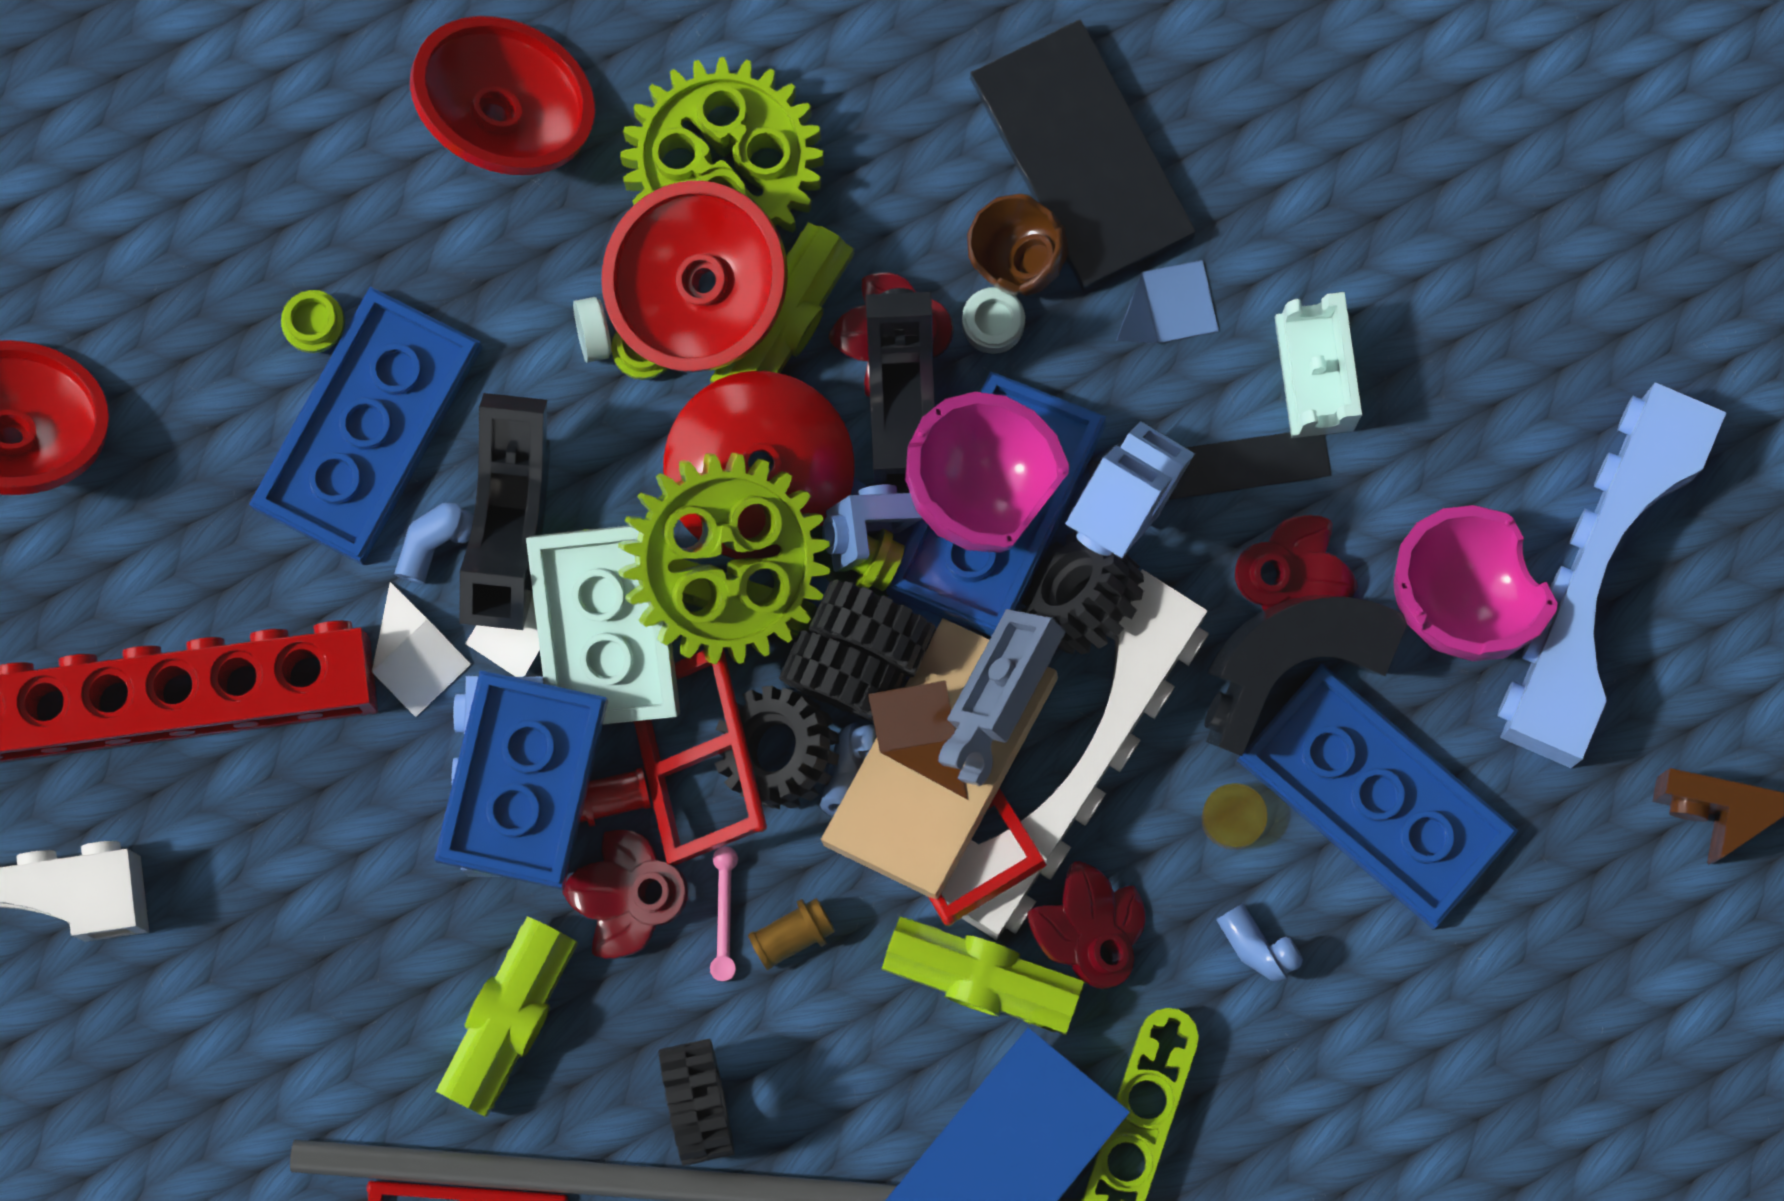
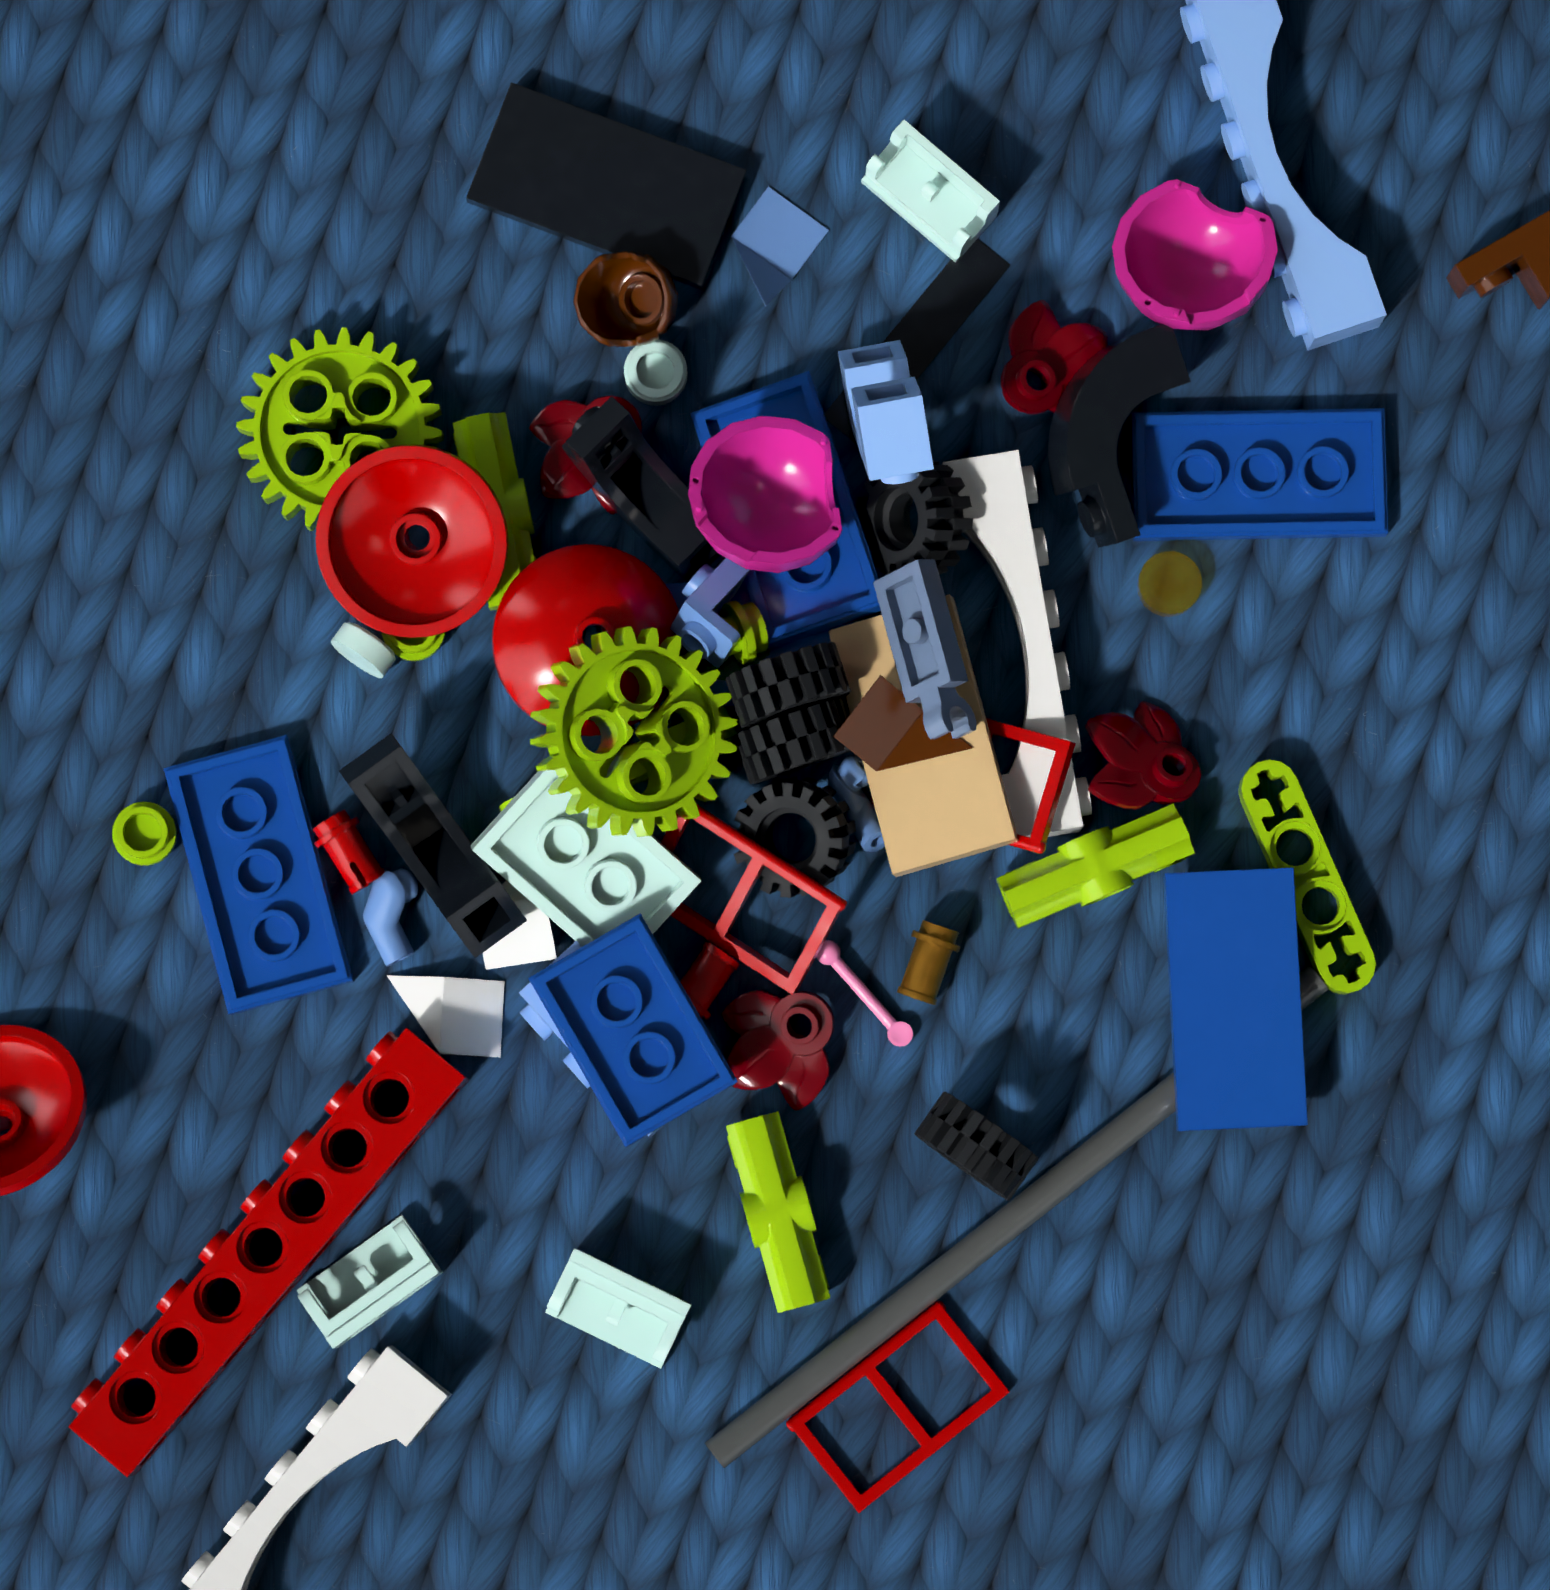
camera: 45 degrees left, 5 degrees up
(163, 793) = (368, 1282): none -> light aqua hinge
(326, 978) = (618, 1308): none -> light aqua hinge
(445, 464) = (348, 850): none -> red pin
(502, 95) = (130, 511): red dish -> none
(1253, 949) = (1273, 668): medium blue arm -> none

